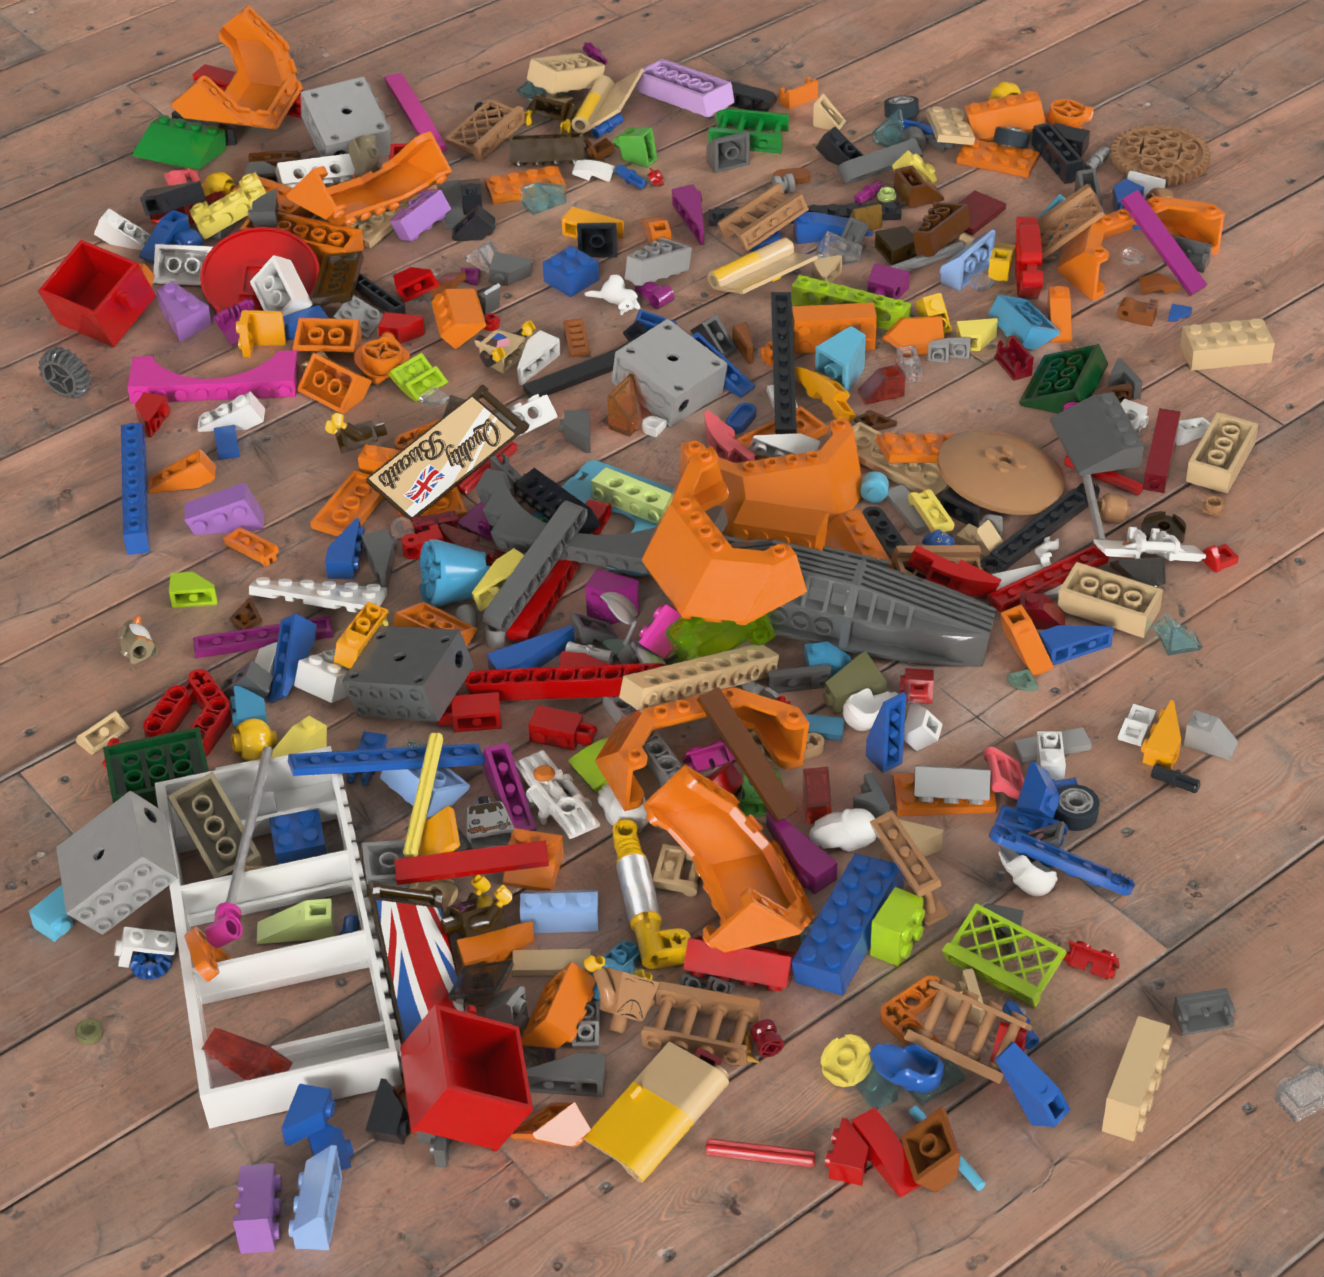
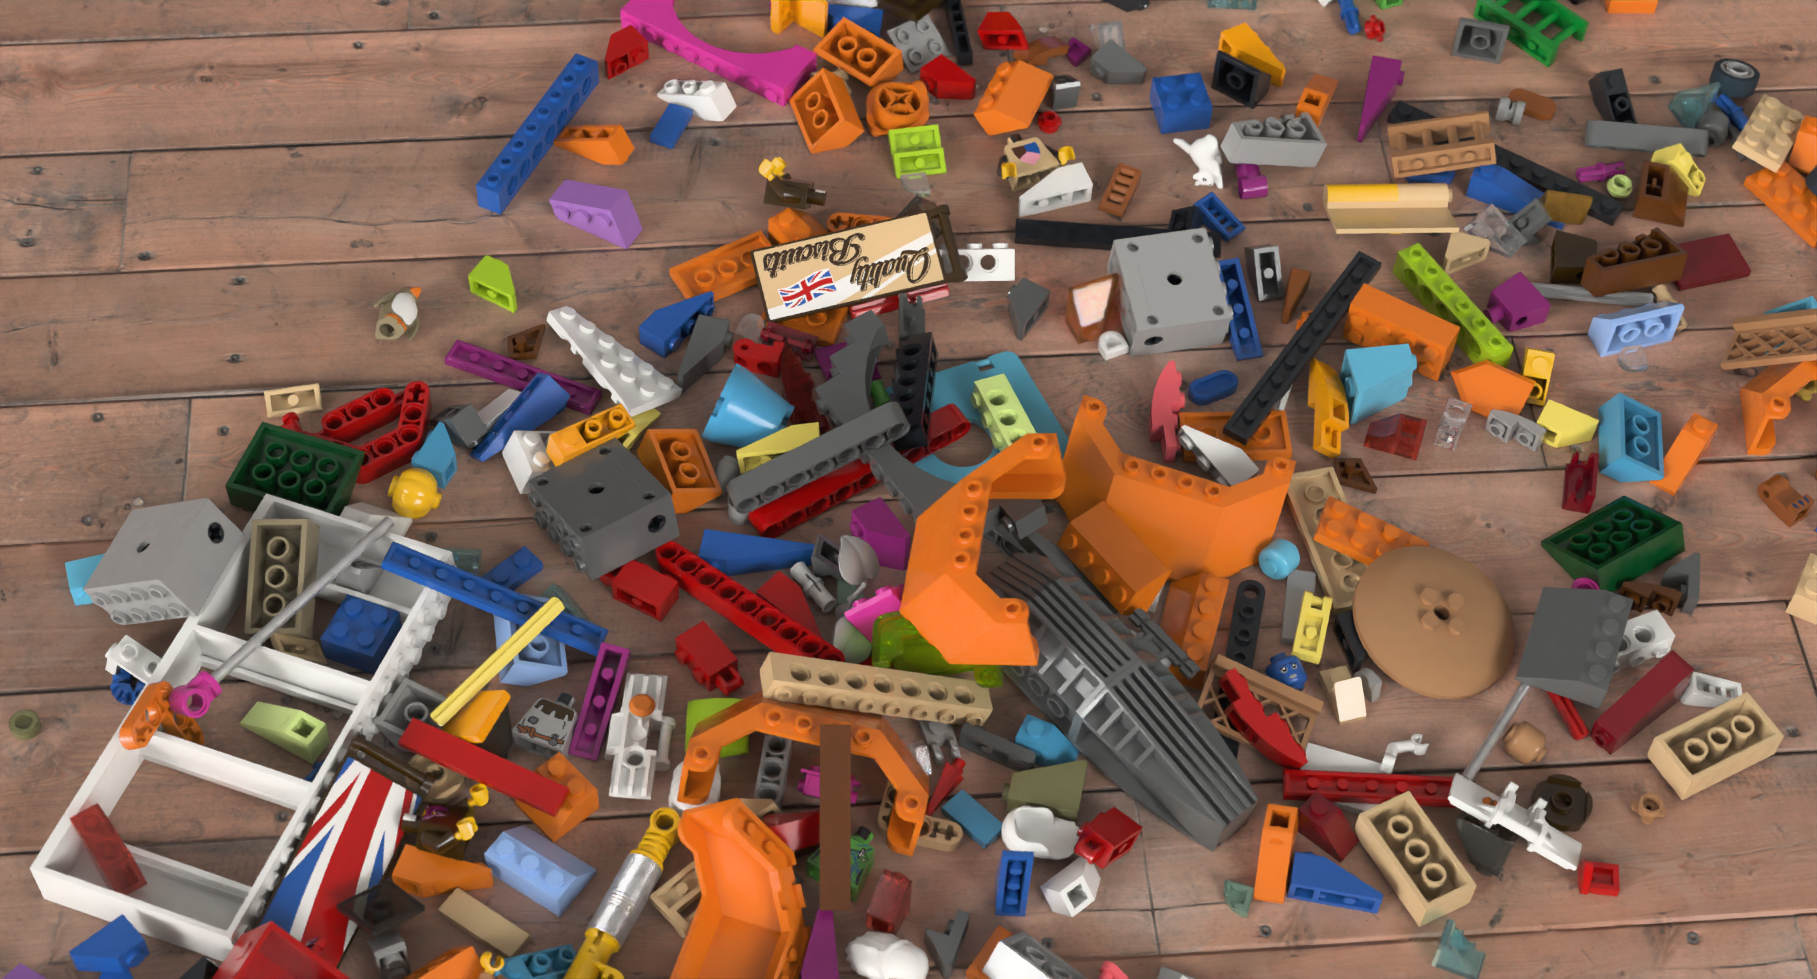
camera: 30 degrees right, 10 degrees up
(252, 546) = (594, 264): orange hinge -> none
(302, 737) = (446, 526): light yellow slope -> none
(826, 115) = (1637, 44): tan slope -> none
(1001, 261) = (1678, 344): yellow slope -> none
(1027, 258) = (1699, 360): red piece -> none
(1037, 530) = (1415, 719): black plate -> none

